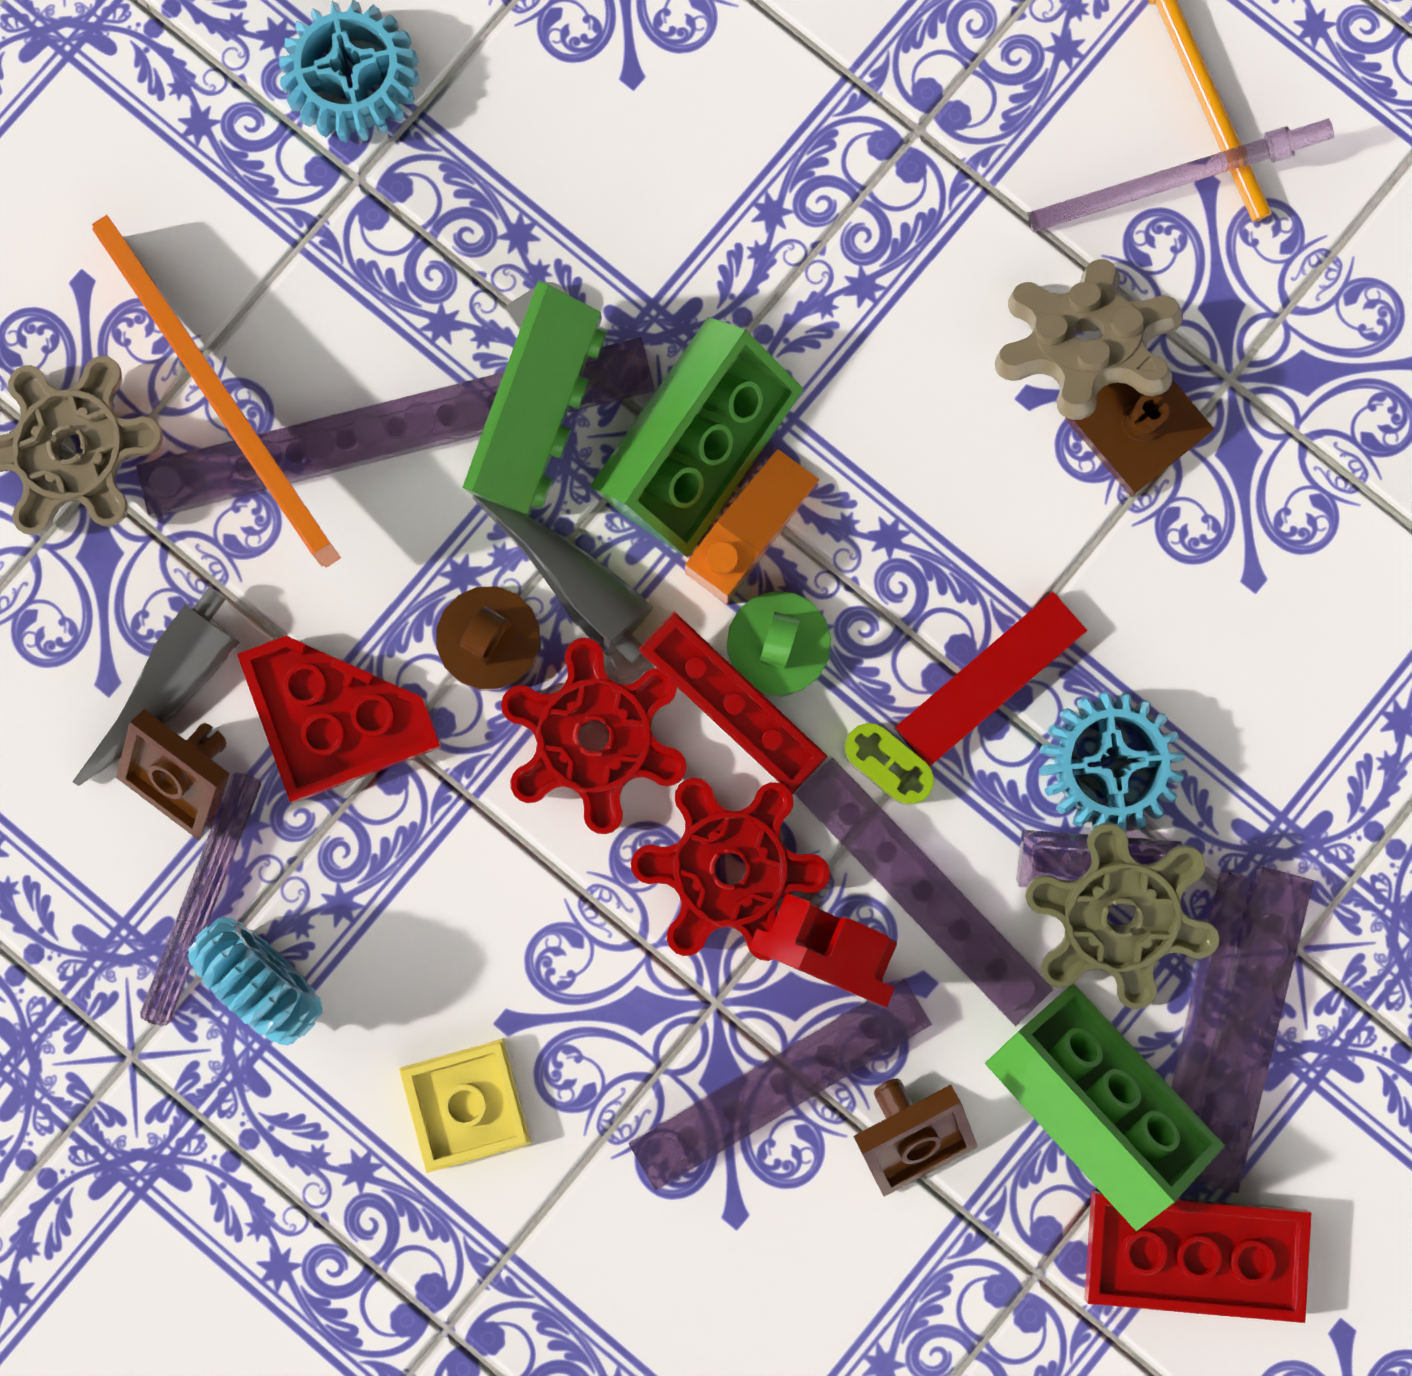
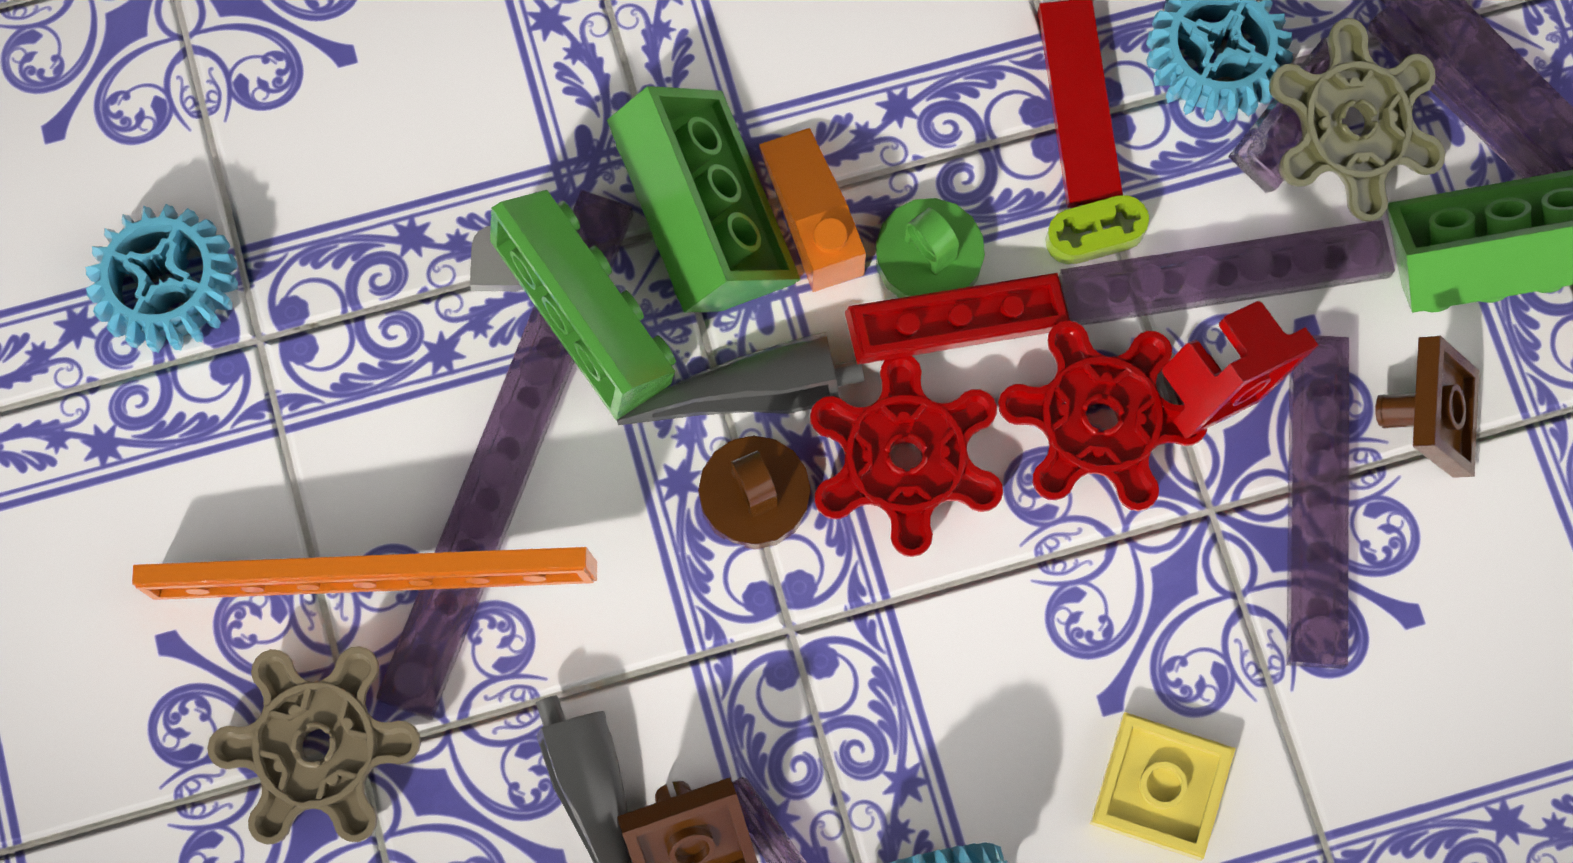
camera: 55 degrees left, 10 degrees down
(331, 718) = (731, 673): red plate -> none

